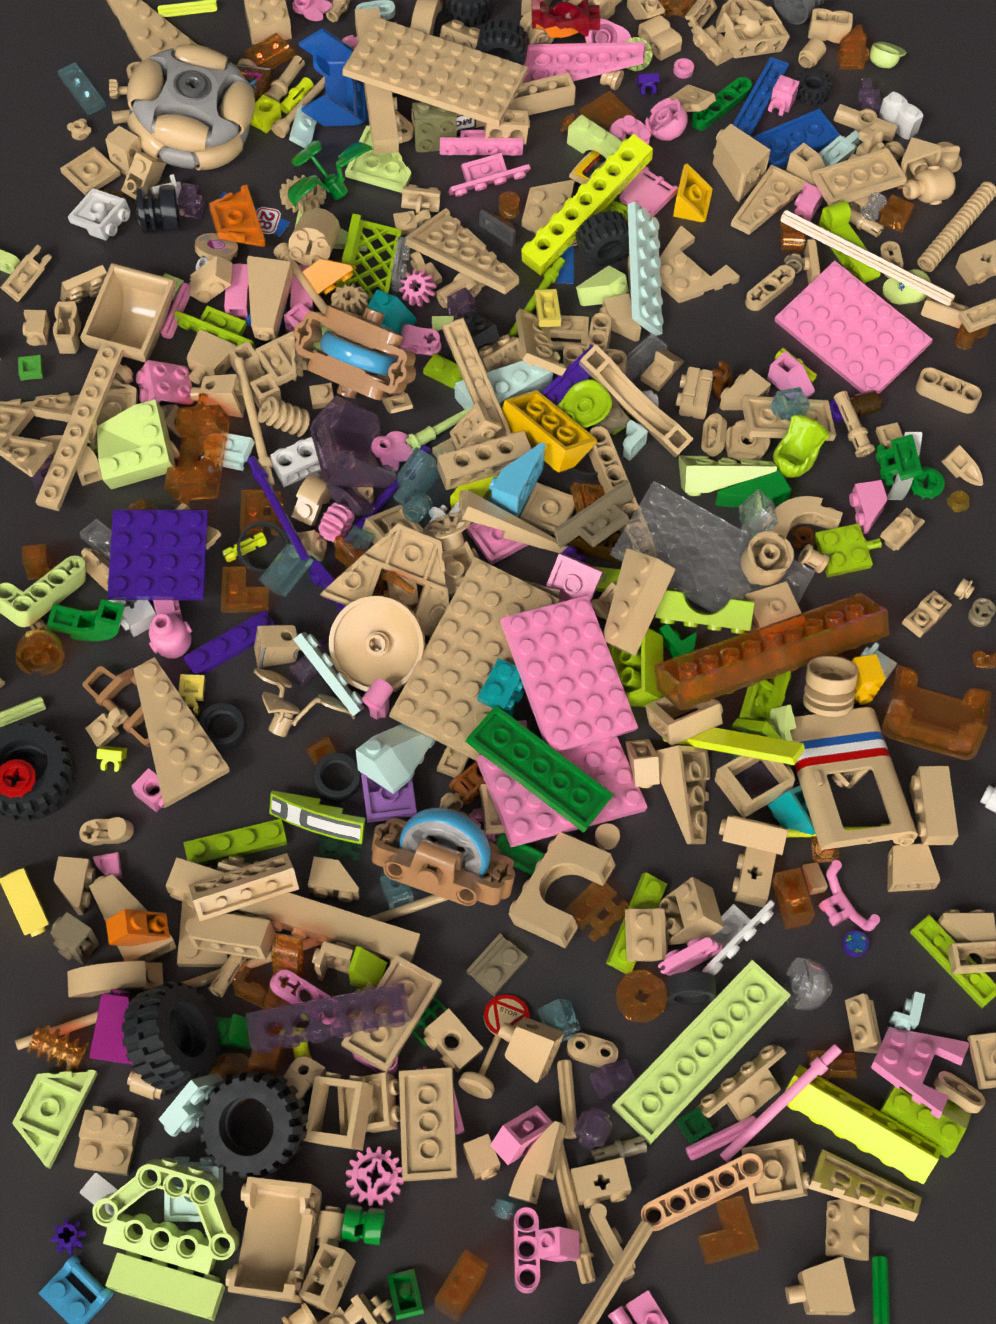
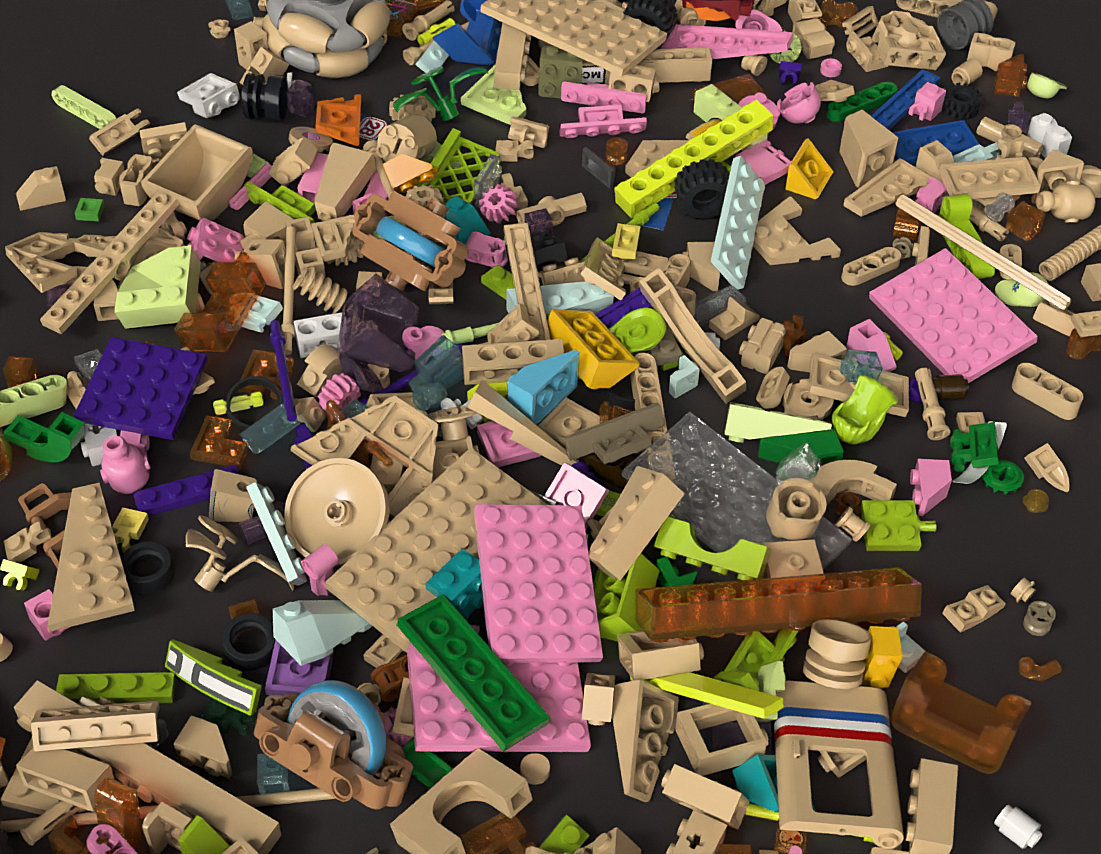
camera: 15 degrees right, 15 degrees down
(90, 171) = (216, 60): tan plate -> none
(266, 113) = (399, 39): neon yellow brick -> none
(460, 249) = (553, 177): tan wing -> none
(602, 285) = (692, 230): yellowish green slope -> none
(901, 529) = (961, 515): tan hips -> none

